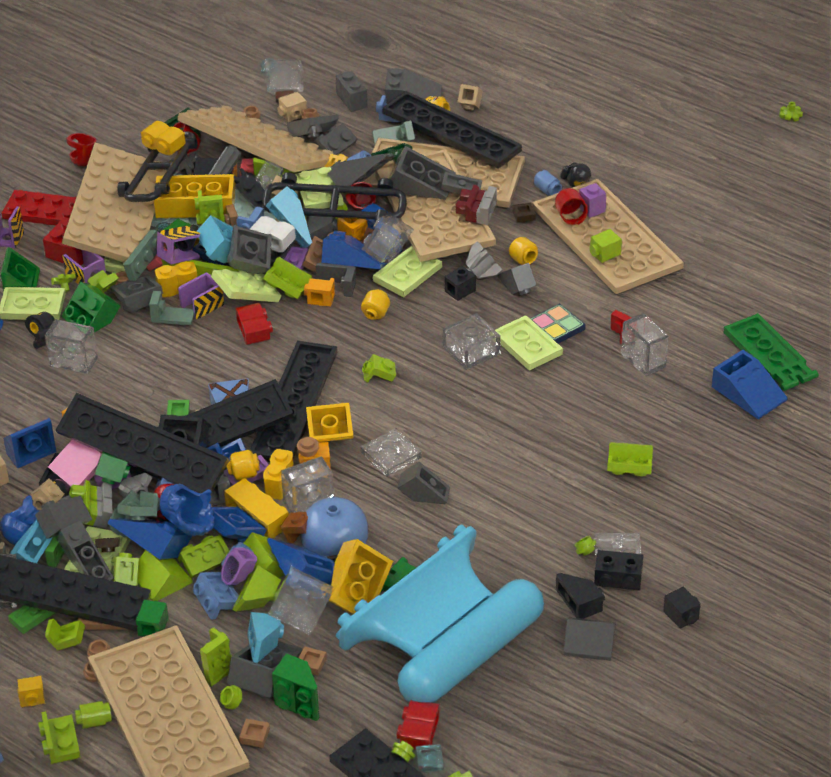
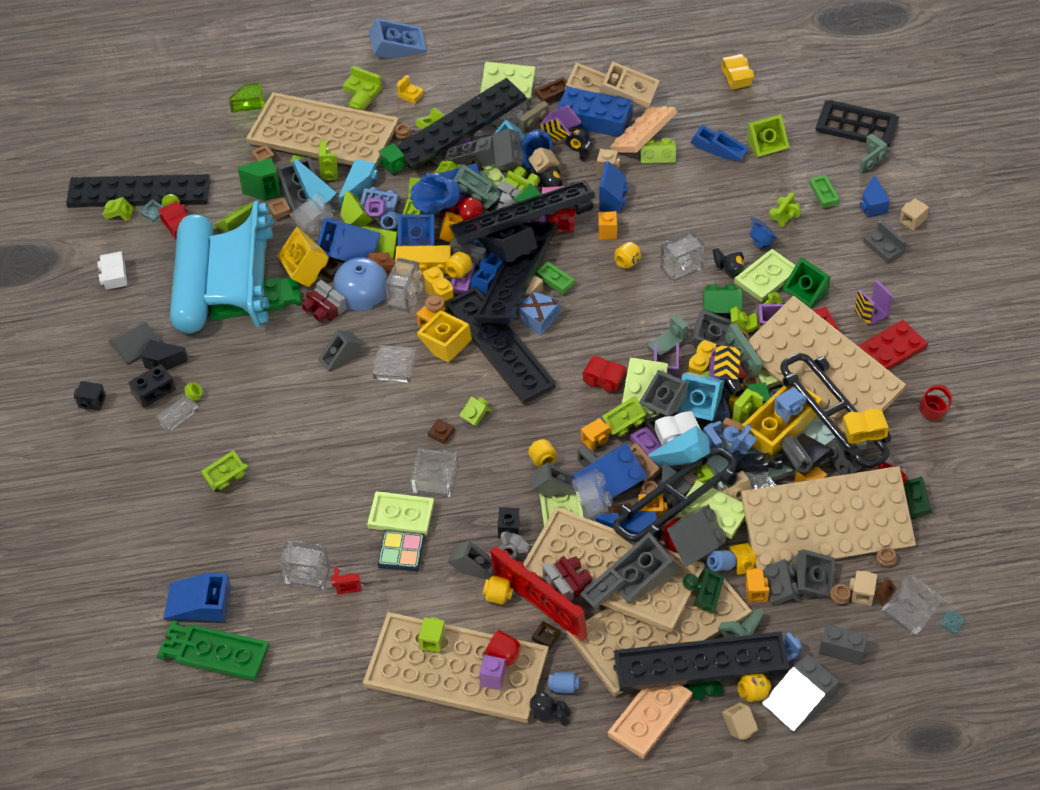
camera: 135 degrees right, 10 degrees up
(101, 387) = (627, 255): none -> yellow head
(187, 177) = (789, 403): none -> medium blue brick
(196, 625) = (360, 177): none -> medium azure slope
(243, 199) = (741, 441): none -> medium blue hips
(354, 145) = (756, 586): none -> light orange brick
(364, 677) = (234, 219): none -> lime slope
(383, 535) = (325, 301): none -> dark red hips
(401, 271) = (552, 481): none -> dark grey slope
(423, 378) = (441, 431): none -> reddish brown plate
(503, 215) = (539, 593): none -> red plate
(531, 136) = (649, 717): none -> light nougat plate
(537, 718) = (113, 270): none -> white brick

